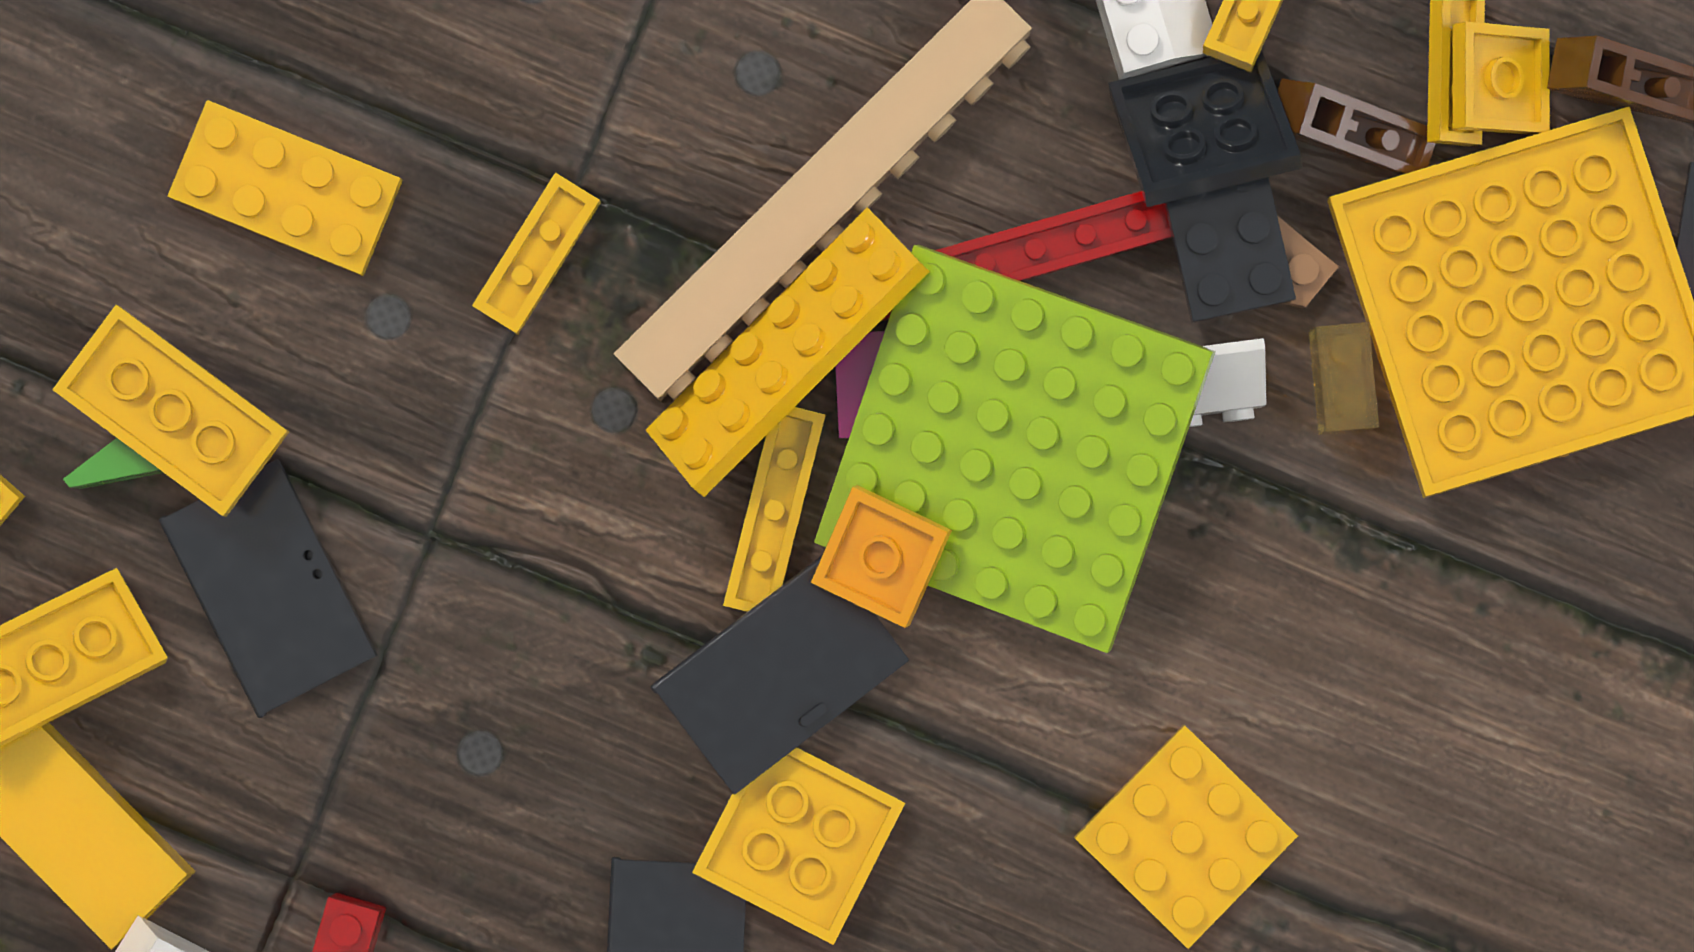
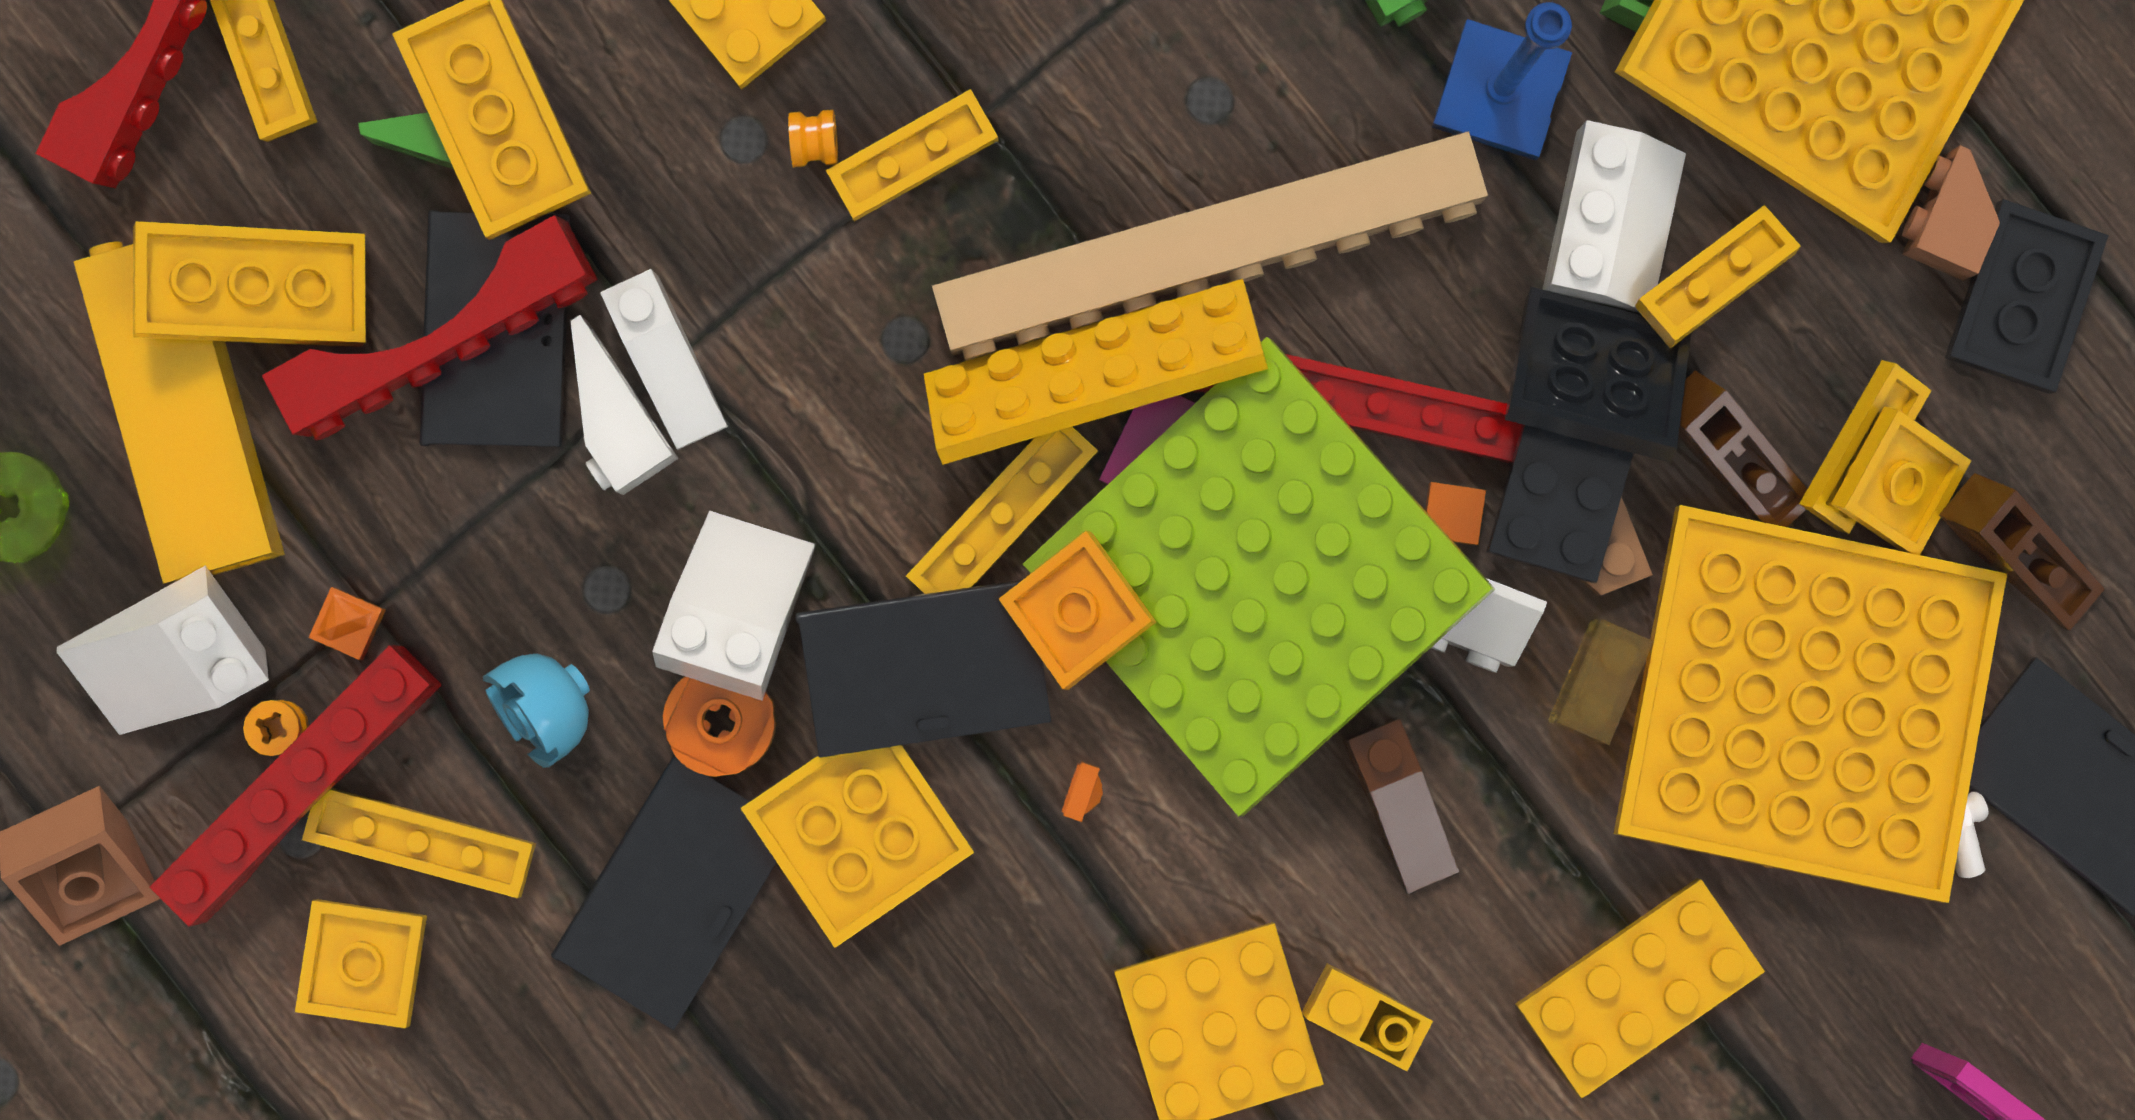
camera: 30 degrees right, 0 degrees up
(275, 527) = (531, 274): none -> red arch
(279, 899) = (347, 623): none -> orange tile
(412, 610) = (615, 422): none -> white slope
(423, 535) = (664, 358): none -> white slope
(446, 284) = (813, 138): none -> light orange wheel
(479, 876) = (540, 704): none -> medium azure cylinder
(593, 708) = (733, 605): none -> white slope
(612, 789) = (728, 752): none -> orange plate
(968, 703) = (1083, 792): none -> orange tile
(1148, 302) = (1456, 511): none -> orange tile
(1235, 569) = (1401, 804): none -> slope
(1302, 760) = (1366, 1017): none -> yellow slope
(1514, 613) = (1639, 988): none -> yellow plate

